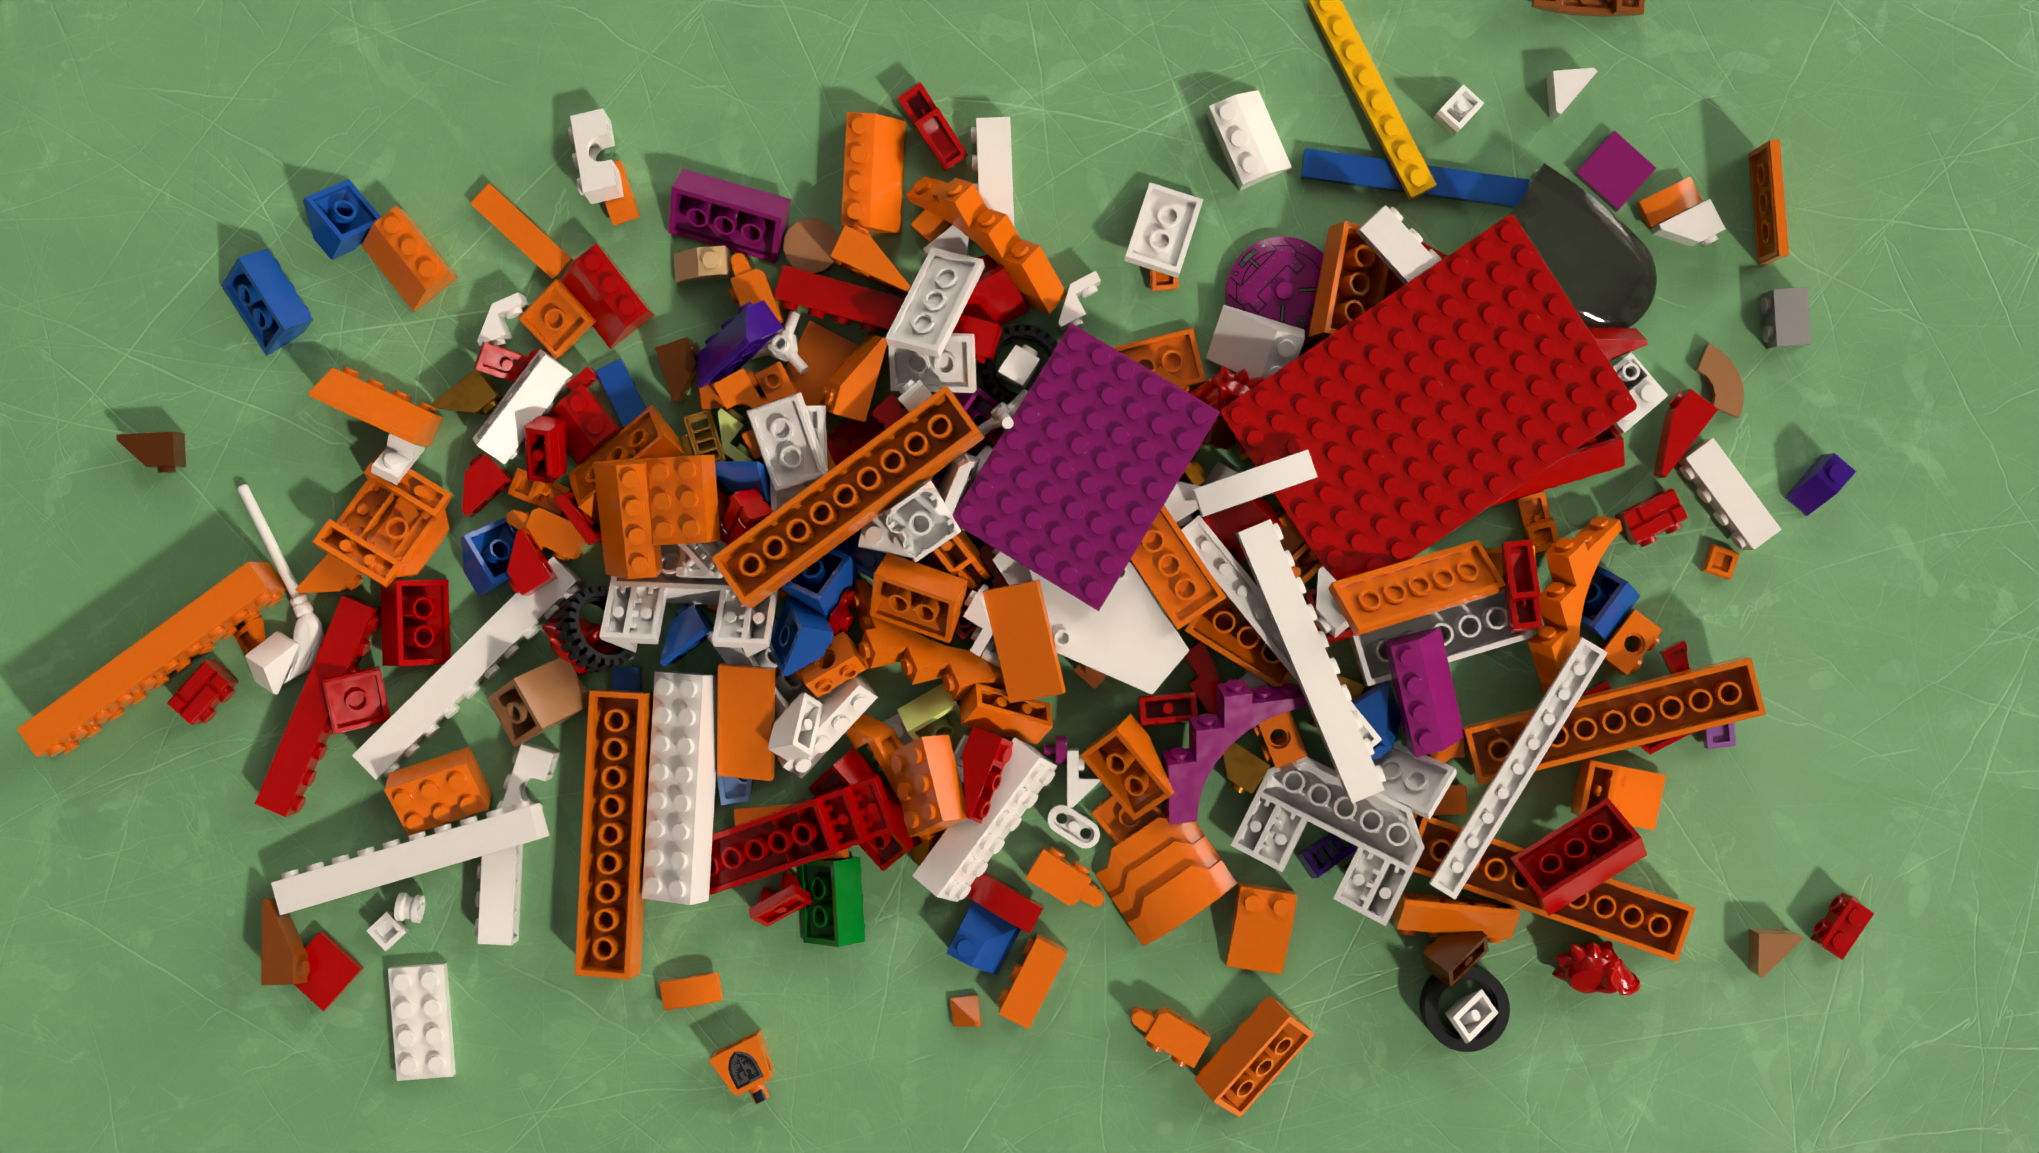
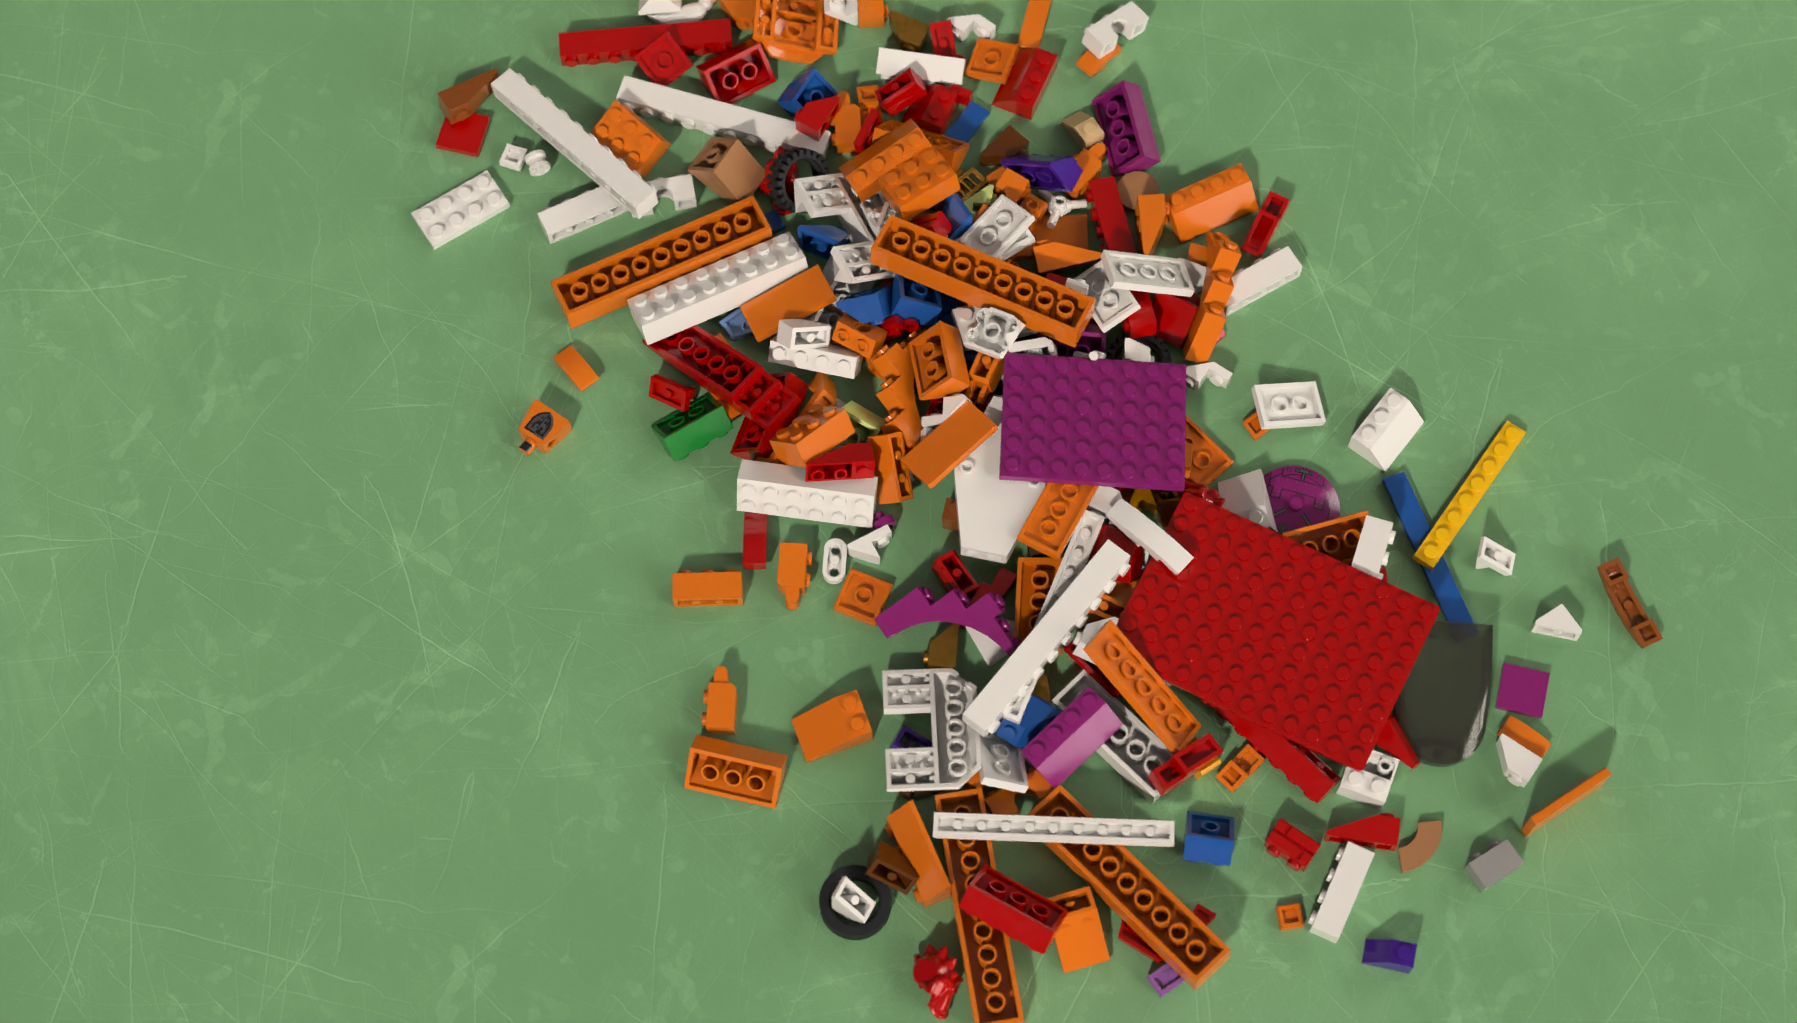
camera: 60 degrees right, 20 degrees down
(483, 483) = (853, 69): red slope -> none
(966, 1011) = (660, 558): orange slope -> none
(983, 939) = (719, 541): blue slope -> none
(1129, 767) = (900, 567): orange slope -> none
(1164, 877) = (834, 639): orange slope -> none
(1285, 748) = (982, 674): orange brick -> none
(1562, 601) = (1191, 802): orange arch -> none
(1645, 636) = (1203, 871): orange brick -> none

